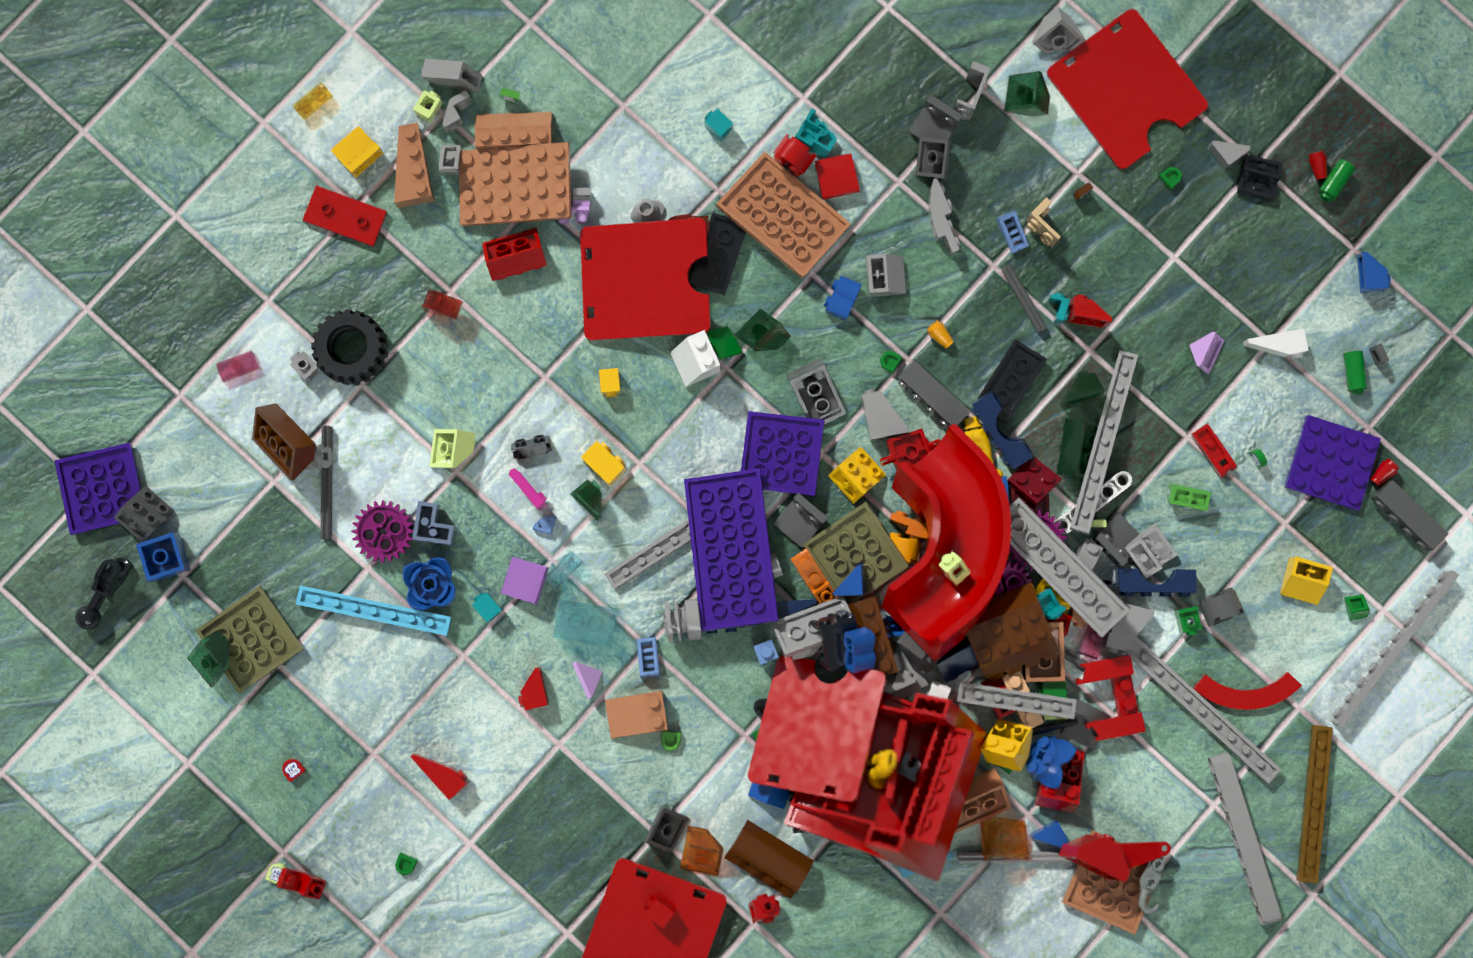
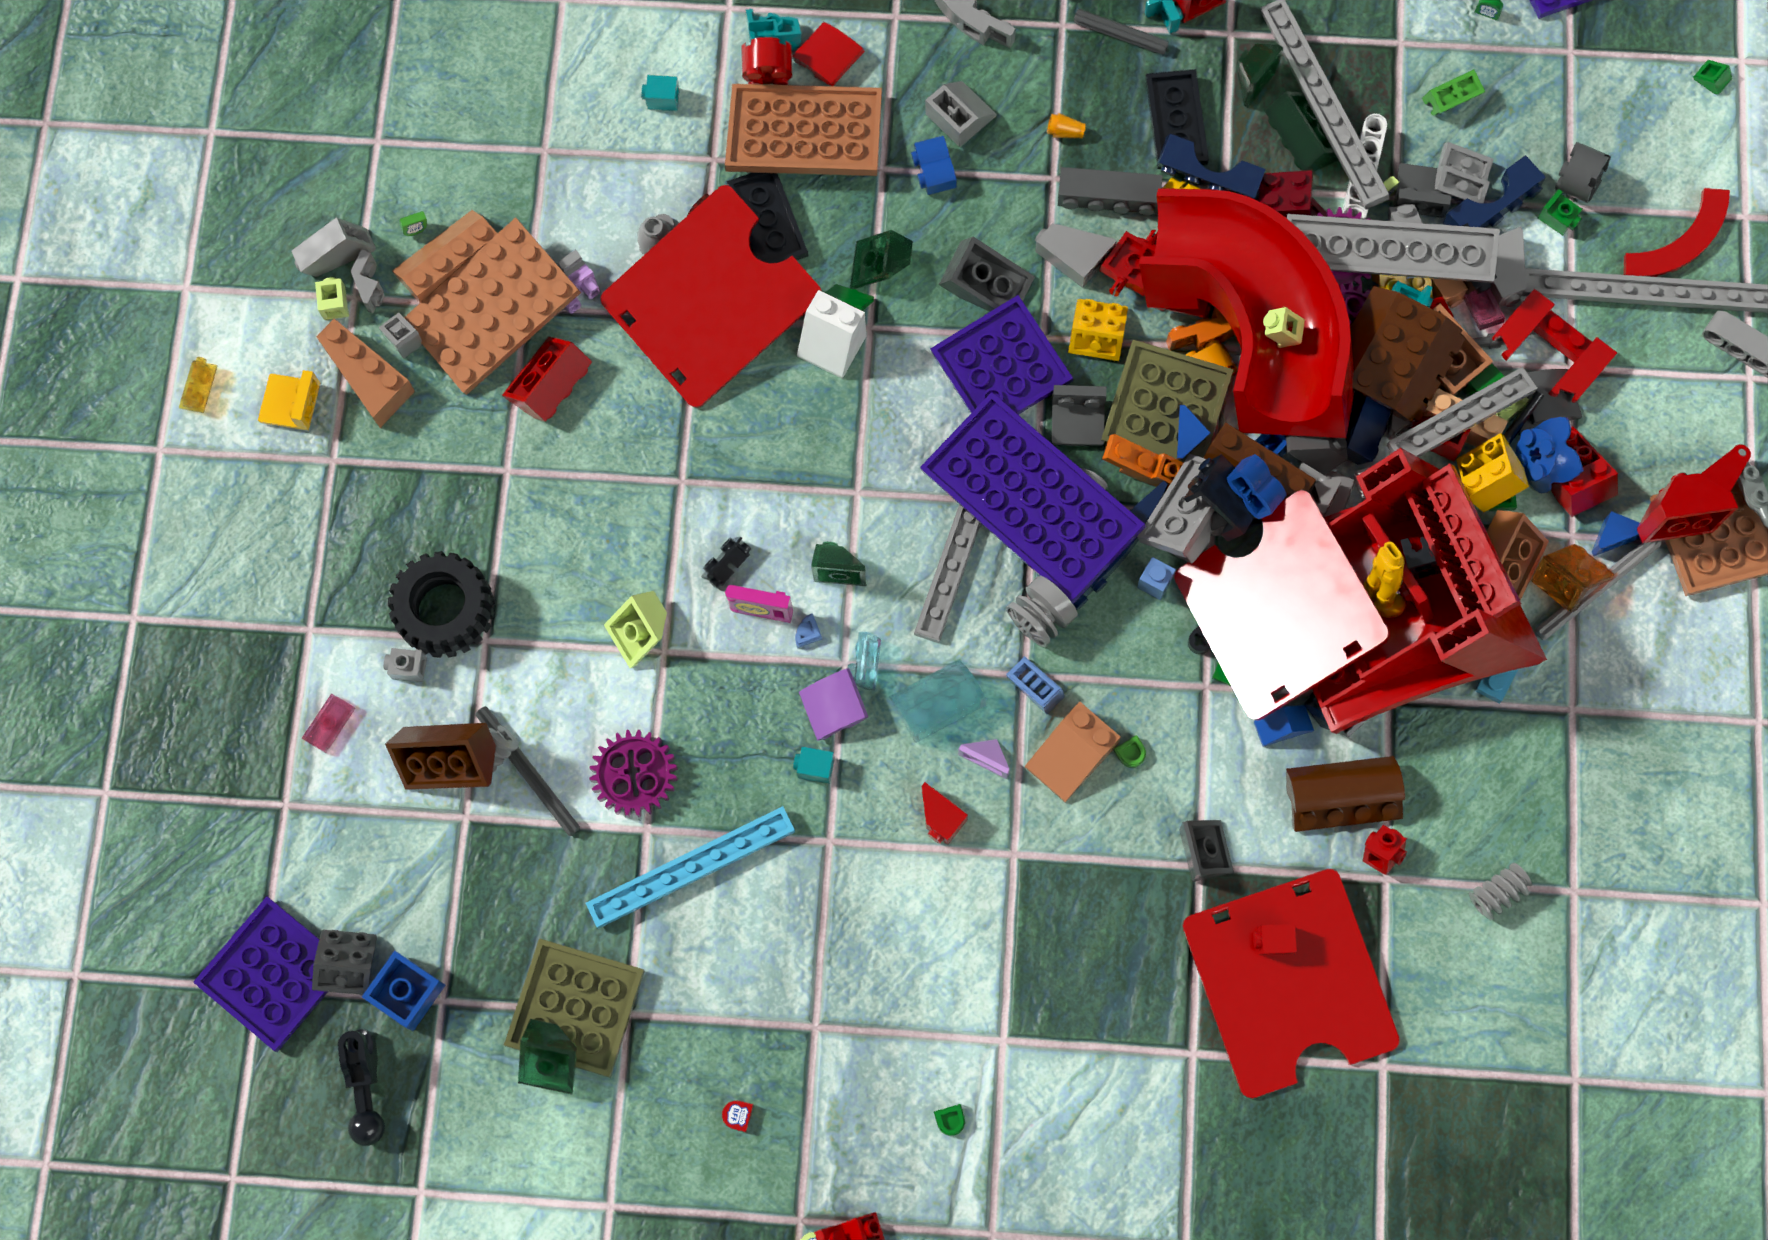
camera: 30 degrees left, 10 degrees down
(344, 216) = (327, 477): red plate -> none
(418, 573) = (728, 767): blue brick -> none
(427, 526) = (687, 729): sand blue brick -> none
(441, 304) = (503, 485): clear red brick -> none
(445, 777) = (916, 986): red slope -> none
(603, 463) = (820, 514): yellow brick -> none
(610, 382) = (757, 430): yellow brick -> none
(701, 852) = (1266, 843): clear orange slope -> none
(890, 361) = (1036, 192): green tile -> none
(1213, 450) = (1439, 33): red plate -> none
(1305, 580) = (1641, 84): yellow slope -> none

